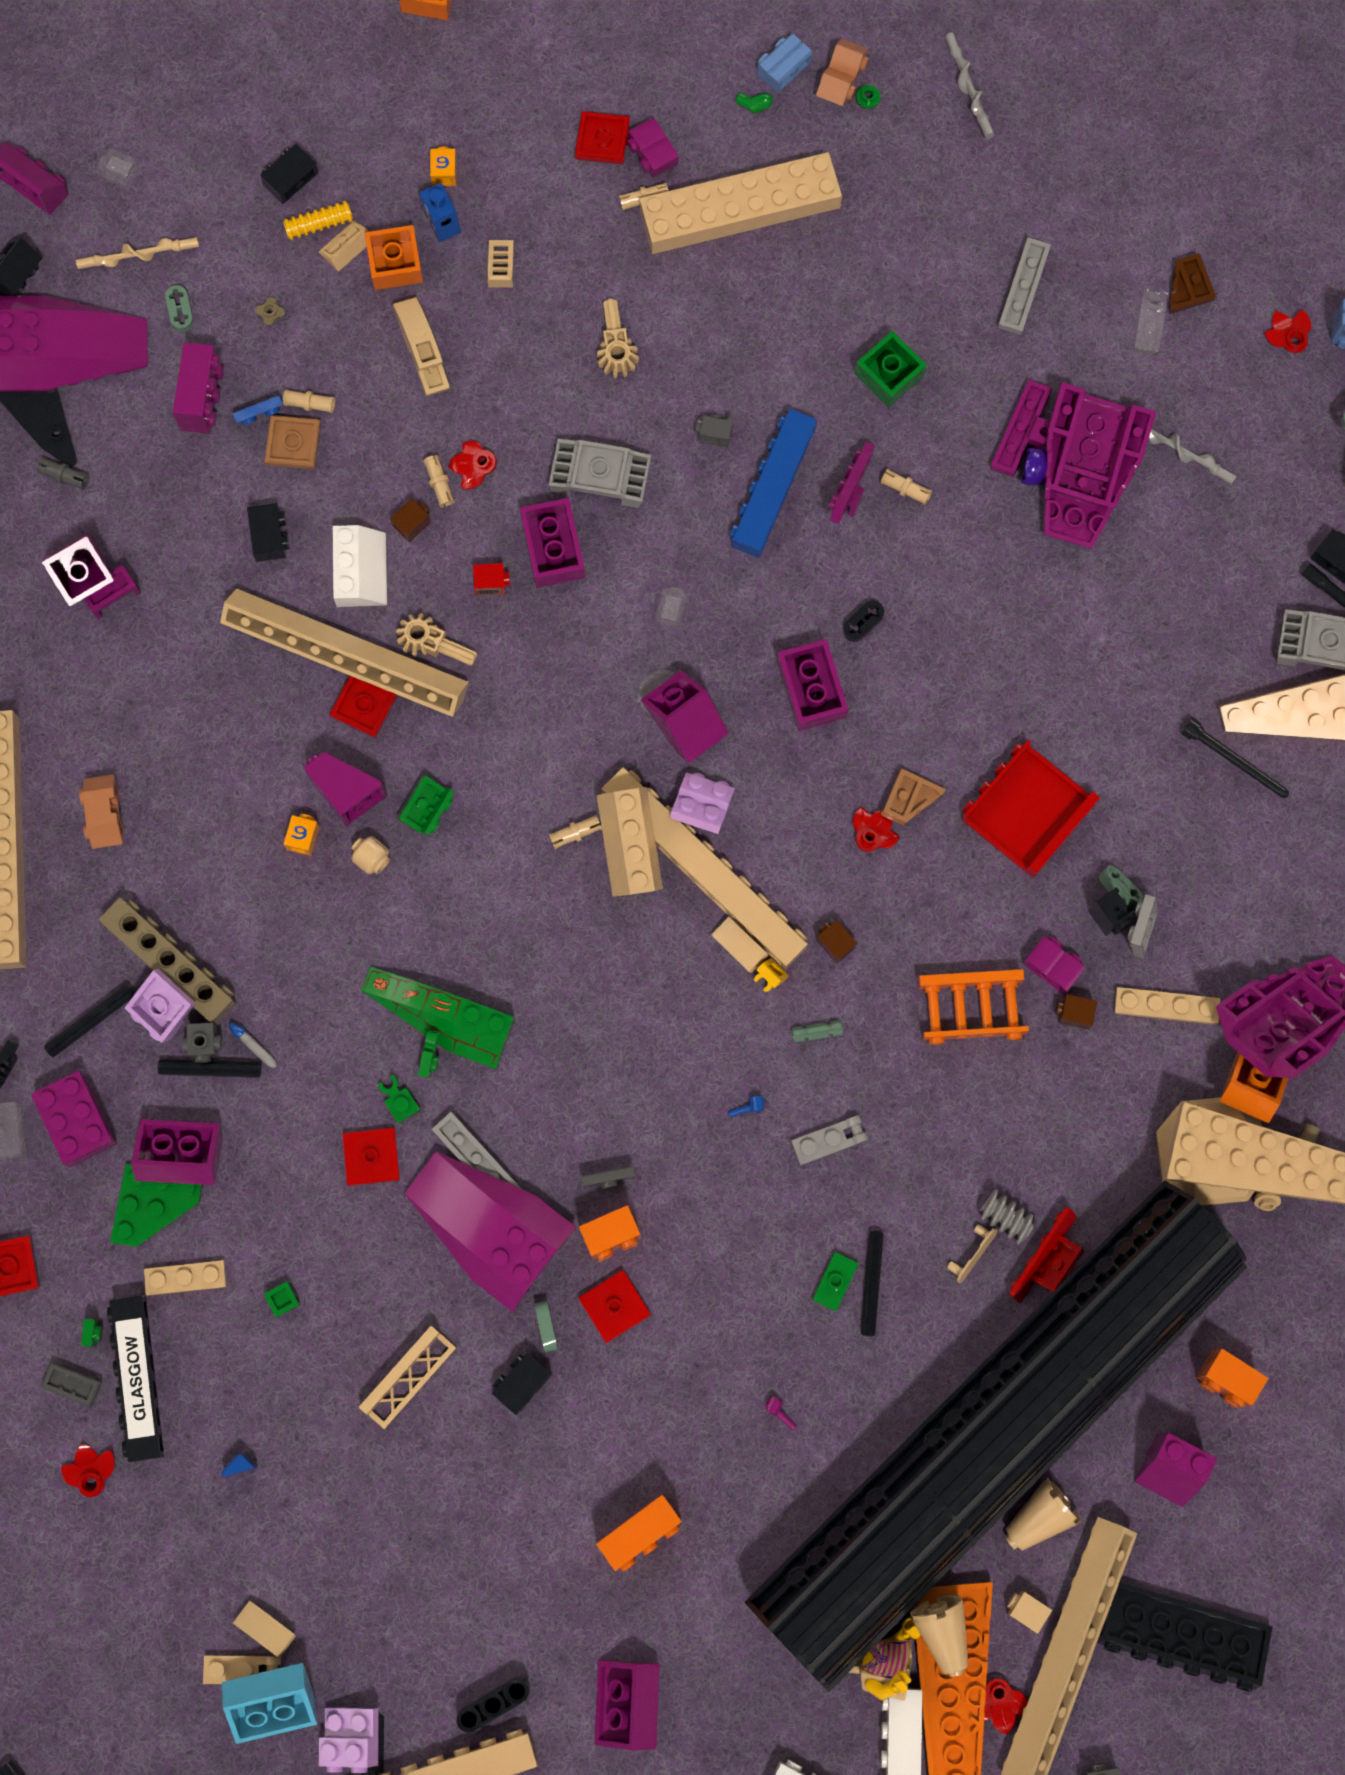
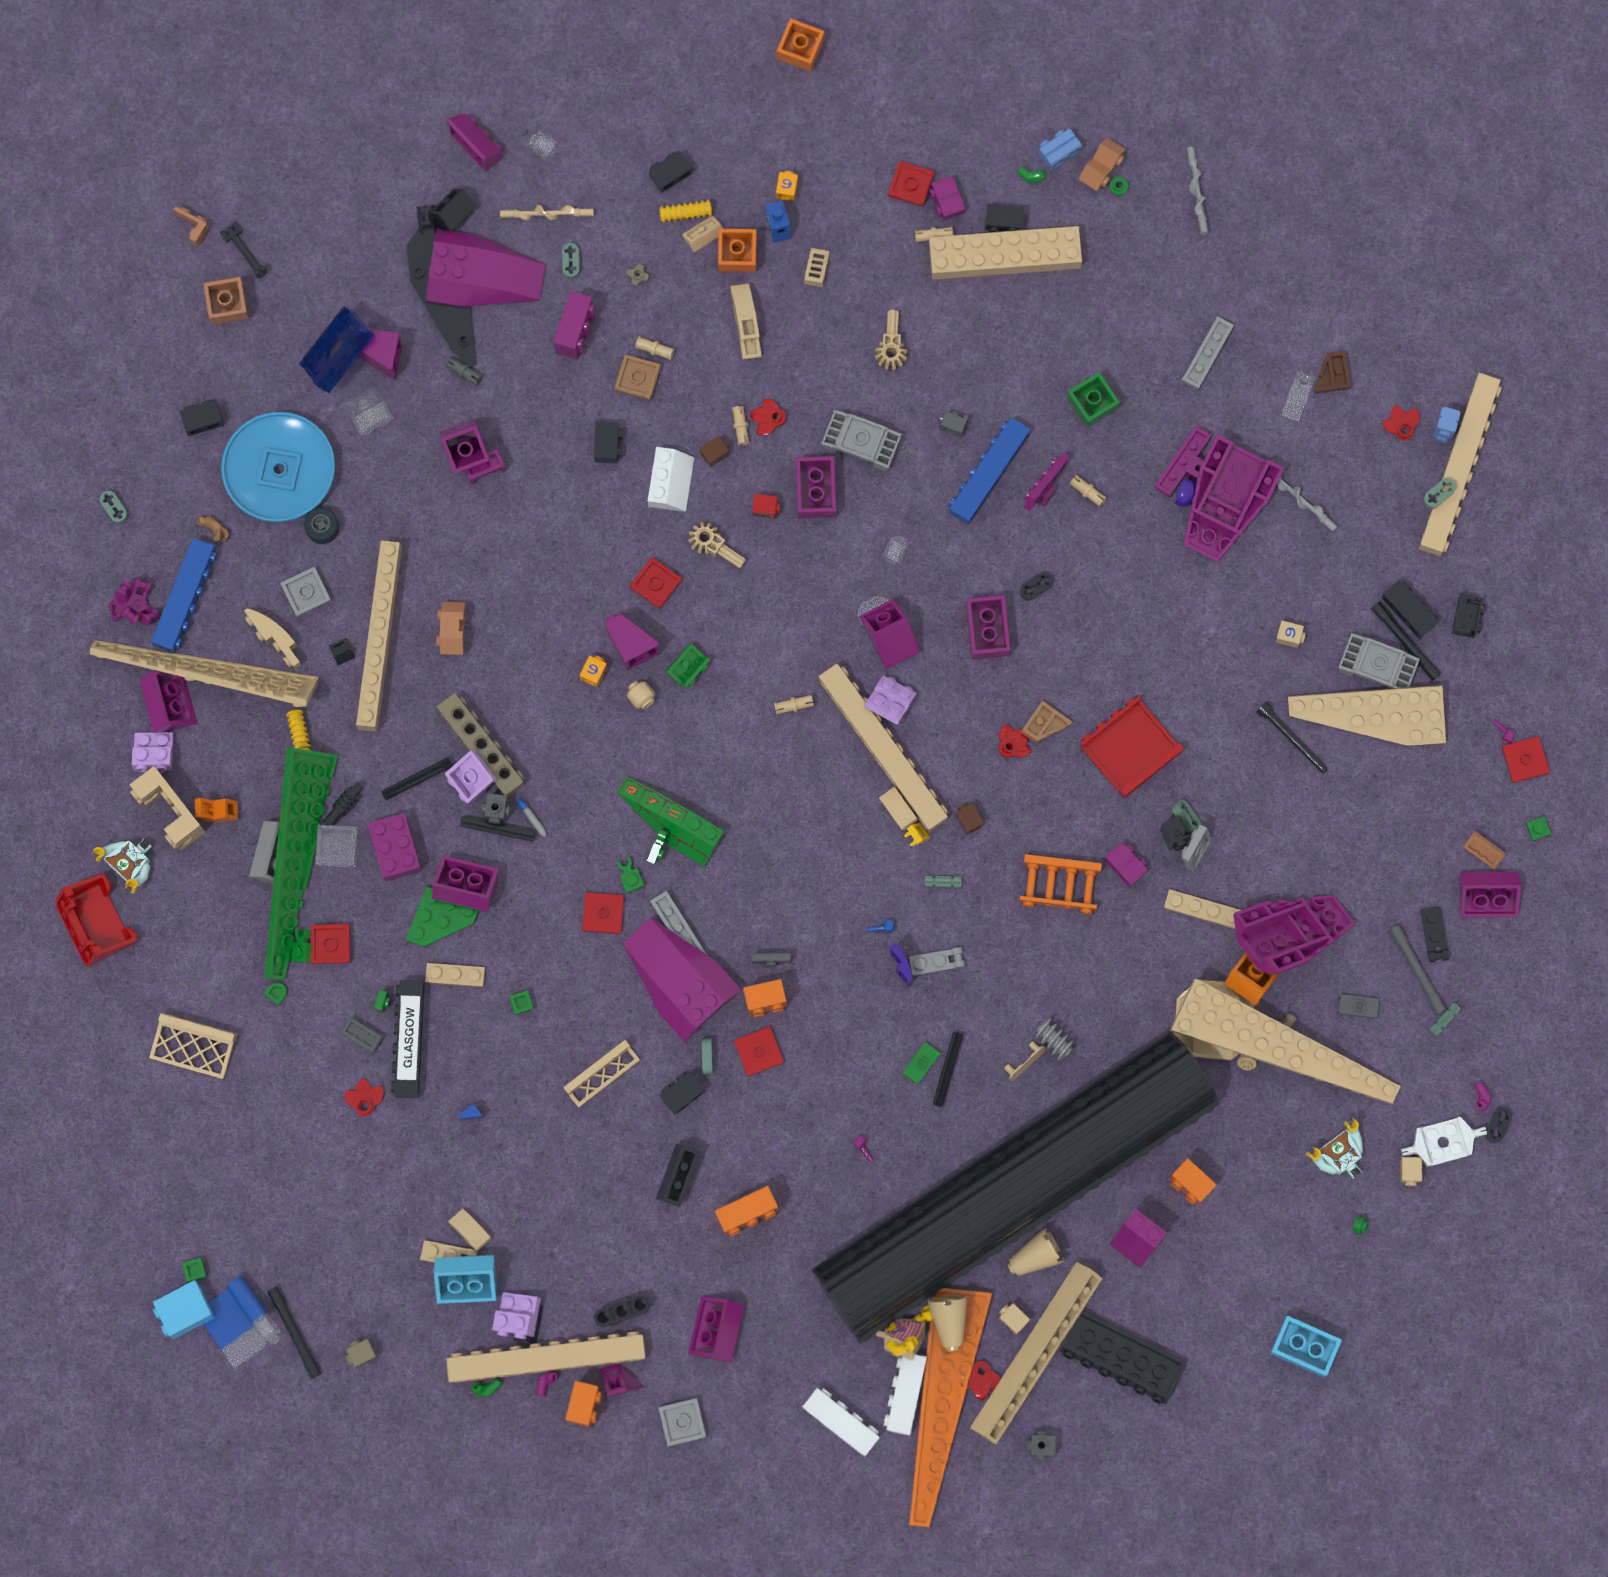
camera: 15 degrees right, 0 degrees up
(248, 414) = (623, 347): blue plate -> none
(344, 652) = (648, 542): tan brick -> none
(536, 1500) = (677, 1175): none -> black brick
(629, 842) = (831, 719): tan slope -> none
(730, 158) = (1004, 218): none -> black hinge
(790, 1161) = (903, 969): none -> dark purple slope
(1052, 1260) = (1079, 1075): red bracket -> none
(1076, 1011) = (1135, 901): reddish brown brick -> none
(1205, 625) = (1290, 634): none -> tan brick

